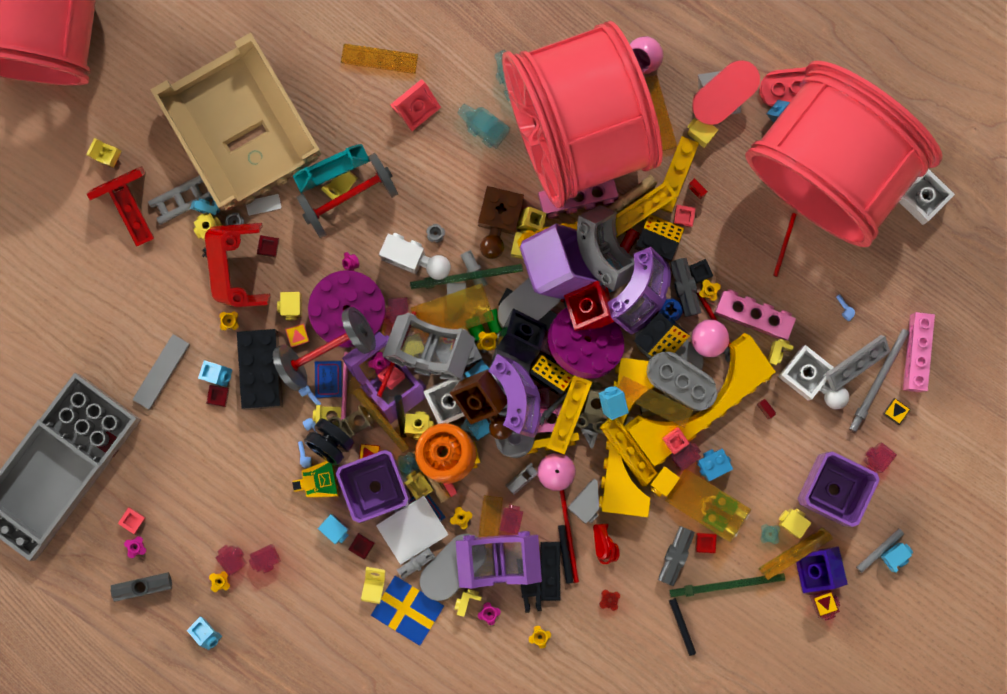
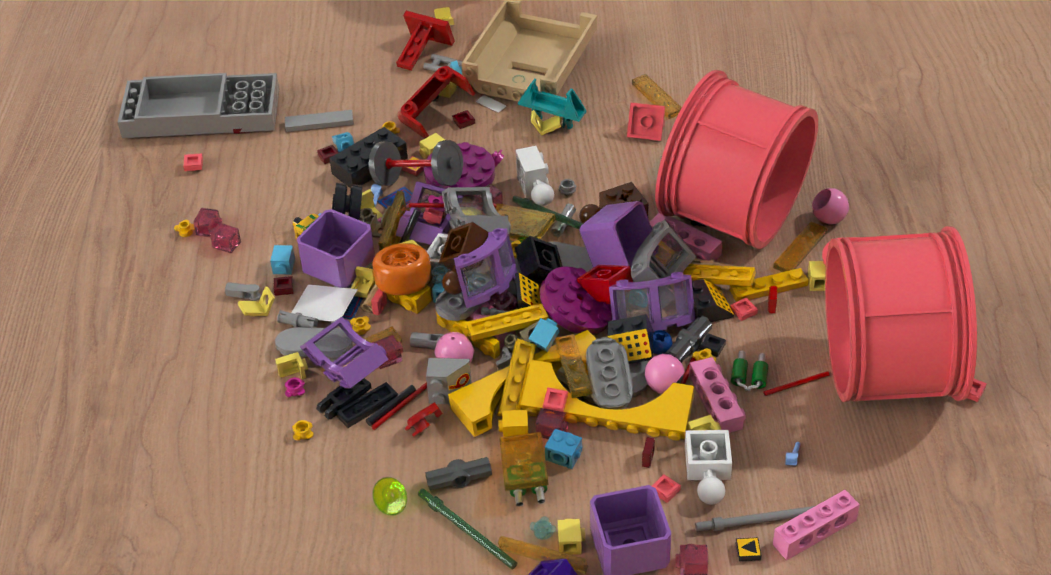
camera: 55 degrees right, 40 degrees down
(130, 588) = (145, 190): dark grey piece -> none
(138, 541) = (174, 175): dark pink plate -> none
(204, 634) = (134, 242): medium azure bracket -> none
(234, 217) = (462, 95): light grey plate -> none
(343, 583) = (245, 291): none -> light grey bar
(382, 175) = (508, 114): dark grey piece -> none
(407, 610) = (253, 342): blue sticker -> none
(605, 596) = (377, 455): clear red plate -> none
(661, 619) = (383, 498): none -> clear neon green piece
(682, 626) = (383, 540): black bar -> none
(706, 543) = (490, 490): red tile -> none
(743, 275) = (759, 372): none -> green piece
(802, 421) = (666, 488): none -> coral tile
(858, 363) = (756, 481): light grey tile -> none
(937, 196) = (947, 433): white brick -> none

